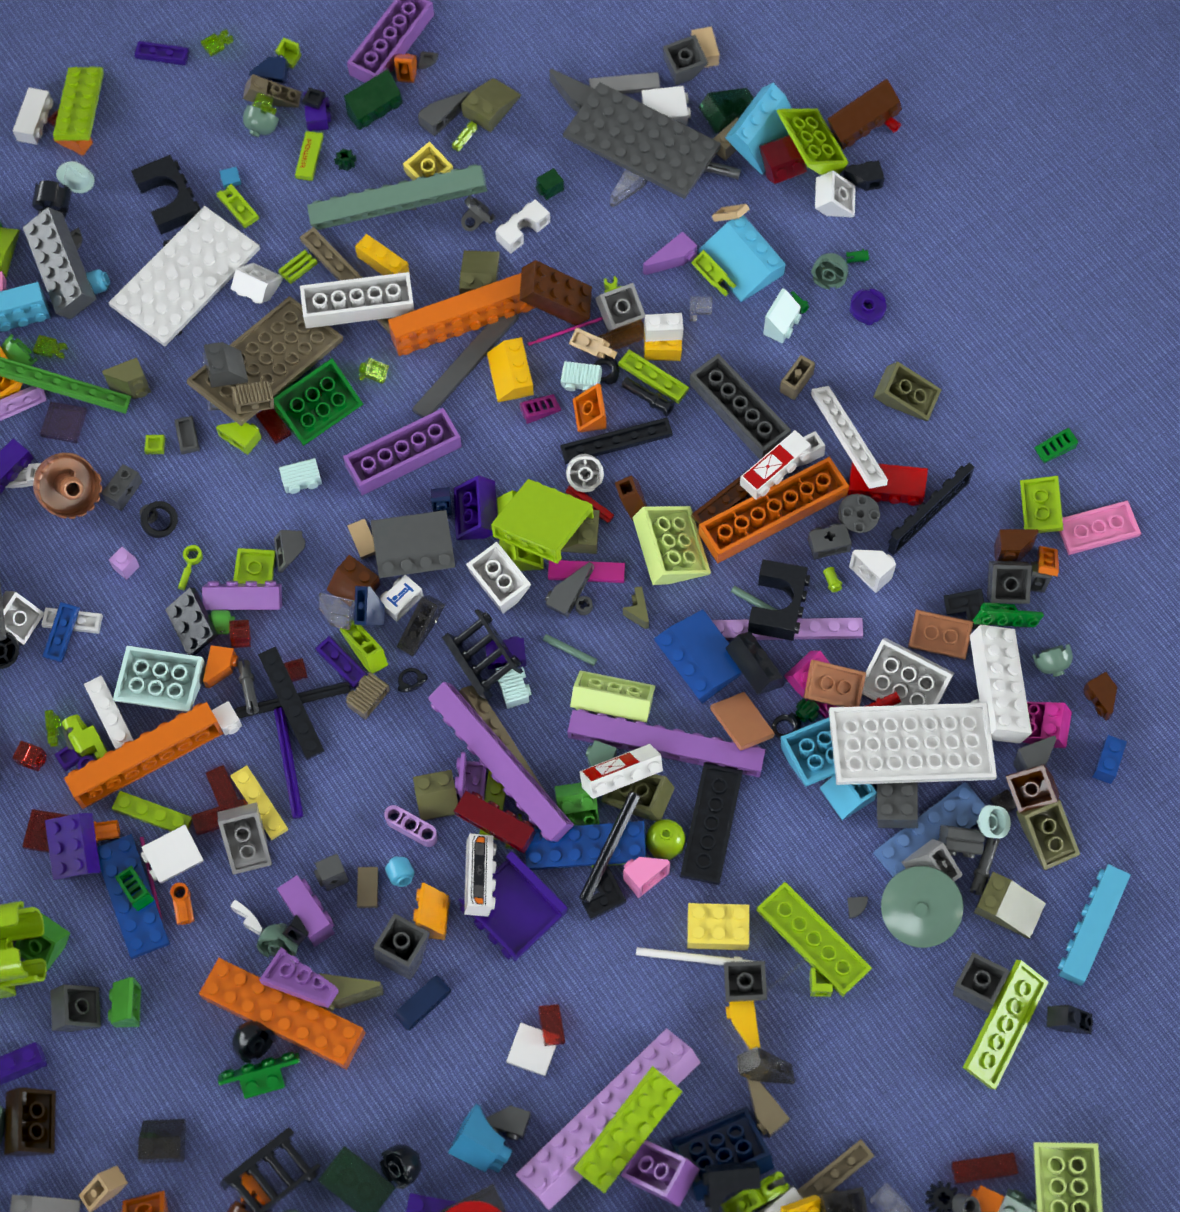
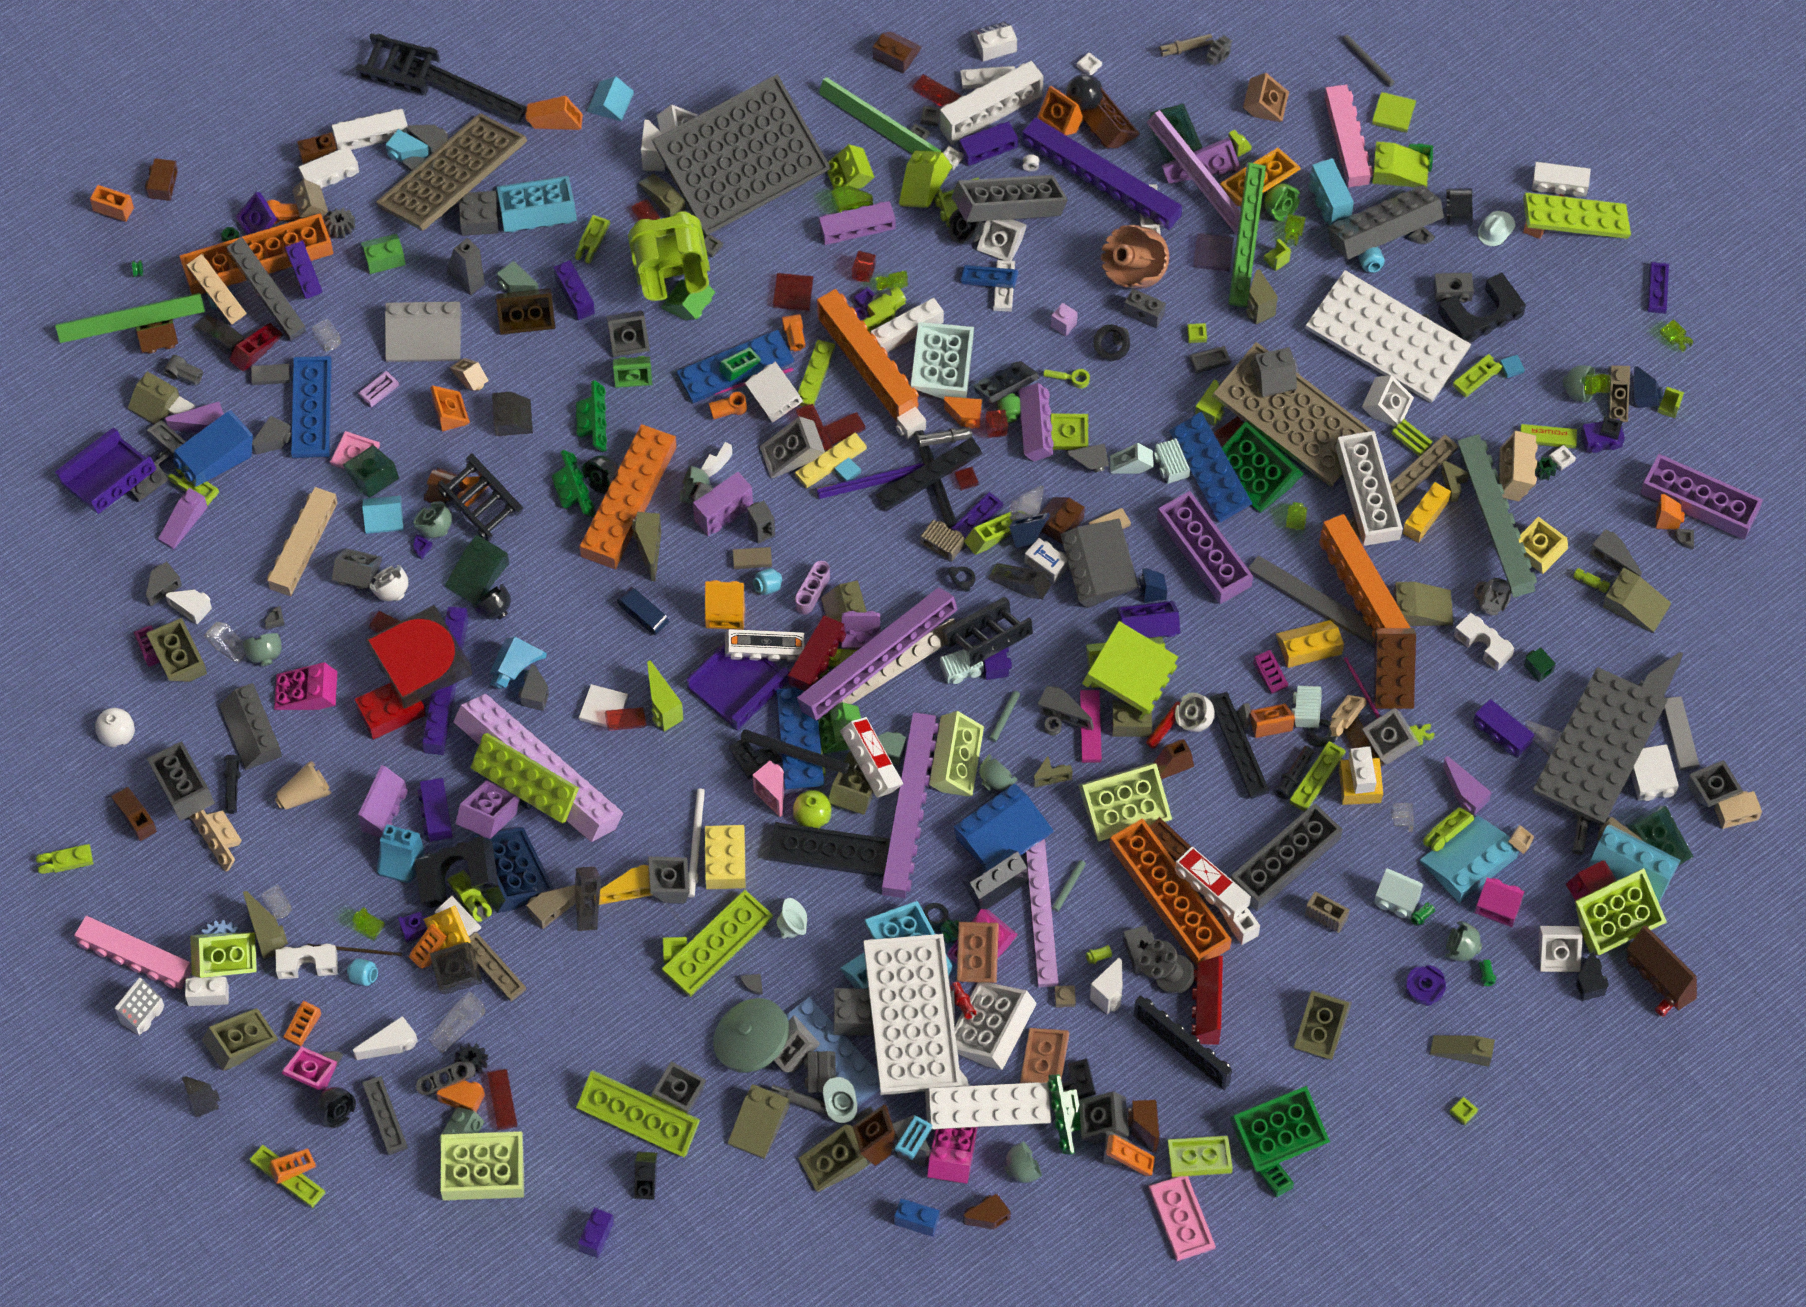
camera: 85 degrees right, 5 degrees down
(72, 846) = (774, 308): dark purple brick -> none
(78, 363) = (1278, 256): none -> lime panel
(135, 207) = (1461, 281): none -> dark grey brick
(176, 1052) = (591, 416): none -> green bracket
(252, 397) = (1239, 399): dark tan brick -> none
(273, 785) = (847, 470): none -> medium azure tile
(294, 978) = (653, 496): medium lavender wing -> none
(295, 510) = (1131, 460): none -> light aqua slope
(311, 440) = (1211, 467): none -> blue plate
(332, 146) = (1562, 457): none -> white tile
(343, 175) = (1518, 465): none -> tan brick
(344, 237) = (1453, 477): none -> olive slope
(372, 100) = (1619, 485): dark green slope -> none
(401, 946) = (687, 580): dark grey slope -> none
(499, 577) = (1070, 640): white slope -> none
(536, 983) = (665, 704): none -> lime slope
(585, 432) = (1243, 715): none -> dark grey tile
(613, 219) = (1503, 728): none -> dark purple brick
(640, 658) = (995, 775): none -> sand green cylinder
(742, 721) = (935, 870): nougat tile -> none
(780, 622) = (1044, 906): black arch -> none
(792, 236) = (1499, 901): none -> dark pink slope
(792, 863) = (792, 919): none -> light aqua piece
(849, 437) = (1253, 954): white plate -> none
(874, 613) = (1065, 996): none -> dark tan plate
(932, 281) = (1463, 1048): none -> olive slope
(989, 288) = (1463, 1110): none -> lime tile
(1013, 435) = (1280, 1129): none -> green slope
(1040, 754) = (905, 1151): none -> medium azure tile
(1094, 924) = (742, 1200): medium azure brick -> none
(1135, 1071) = (595, 1232): none -> dark purple brick

